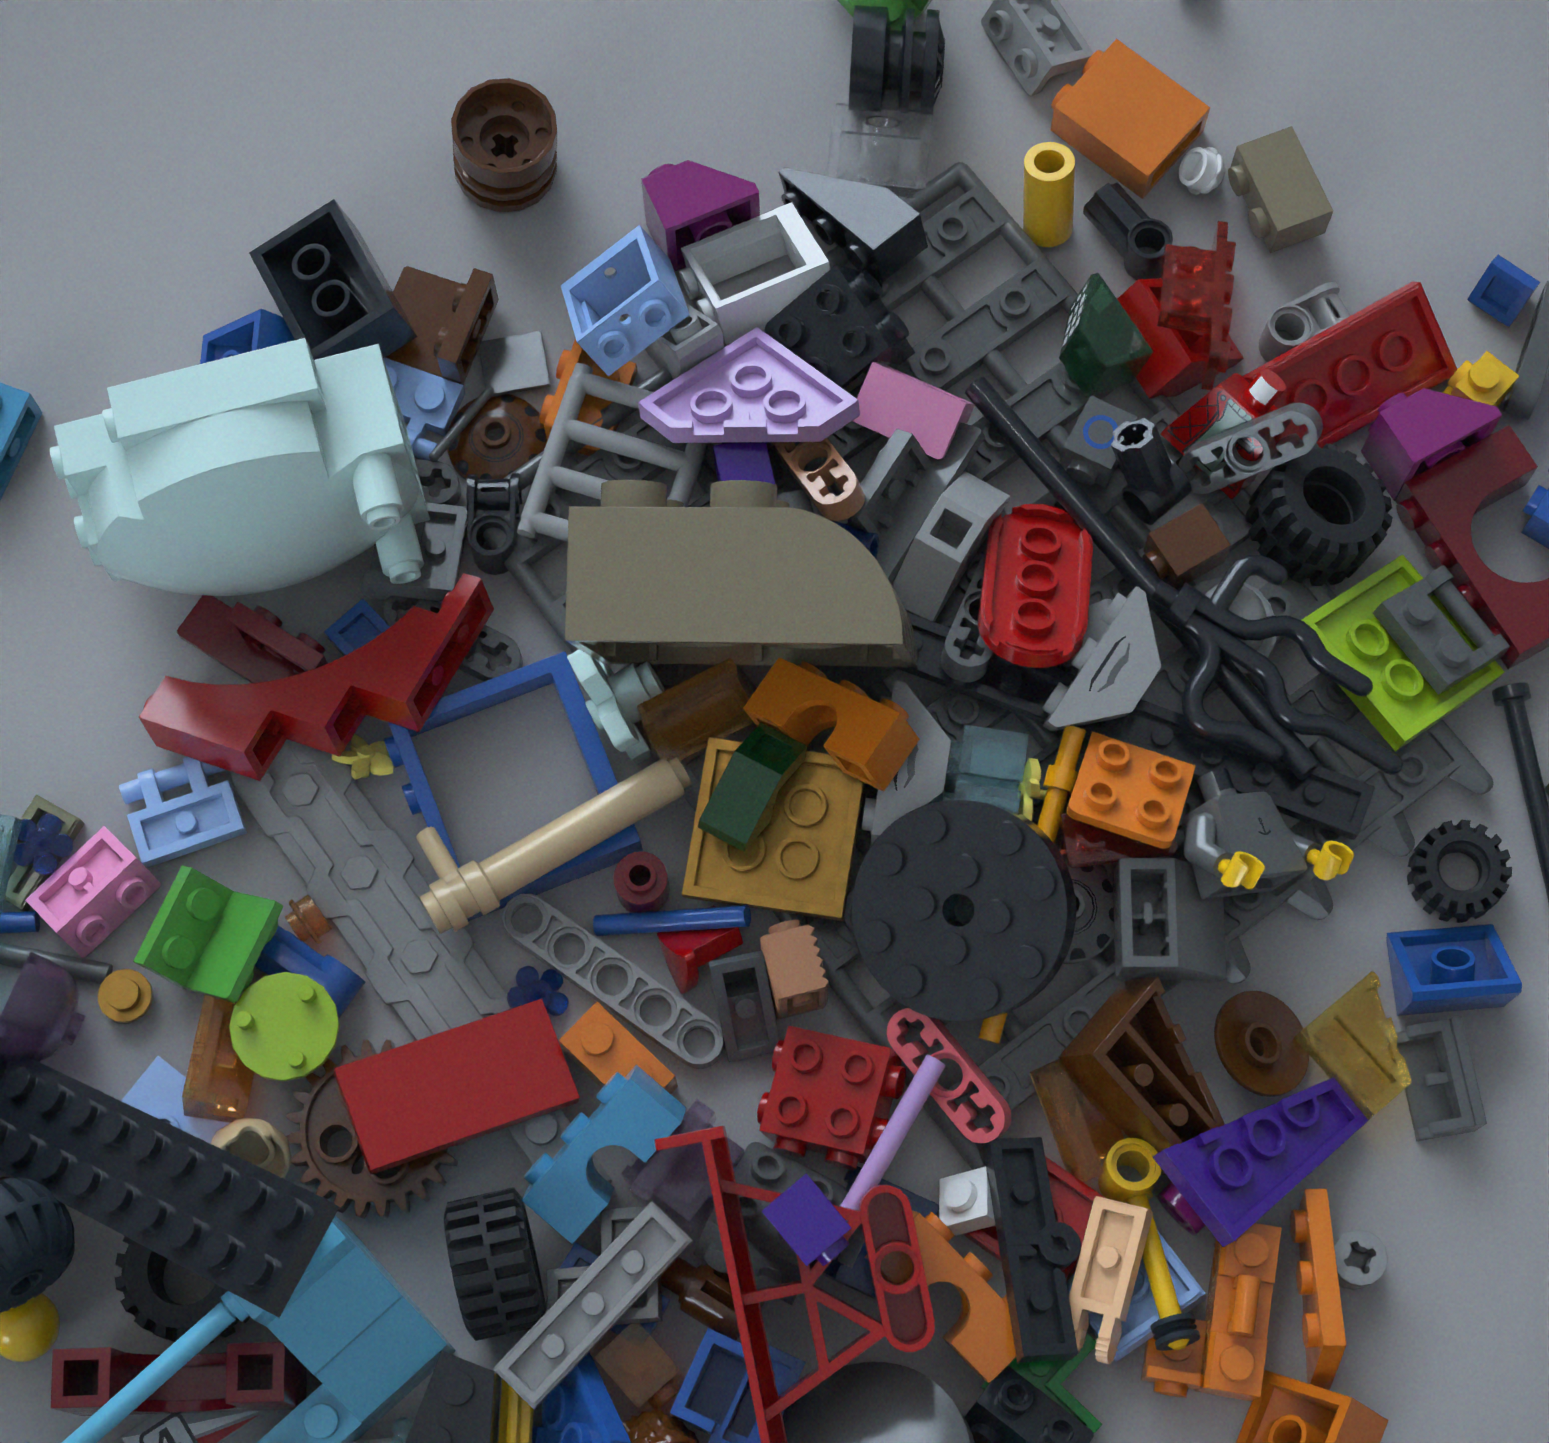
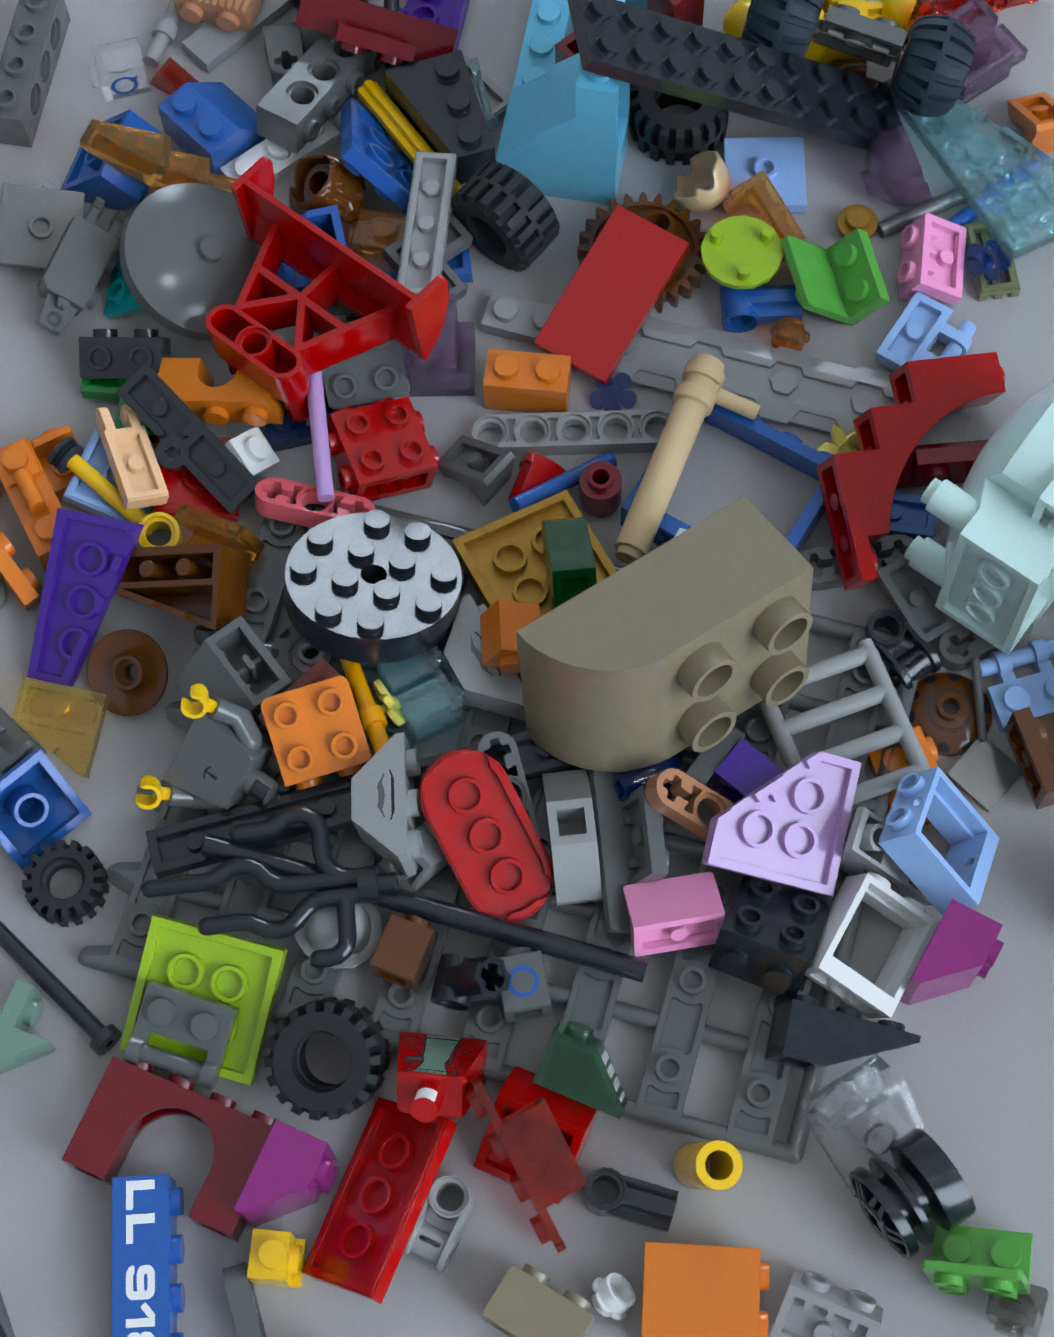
camera: 145 degrees right, 5 degrees down
(568, 1187) = (495, 294): dark azure arch -> none
(794, 969) = (459, 494): nougat brick -> none
(808, 1222) = (323, 313): dark purple brick -> none
(1288, 446) = (405, 1050): dark grey beam -> none

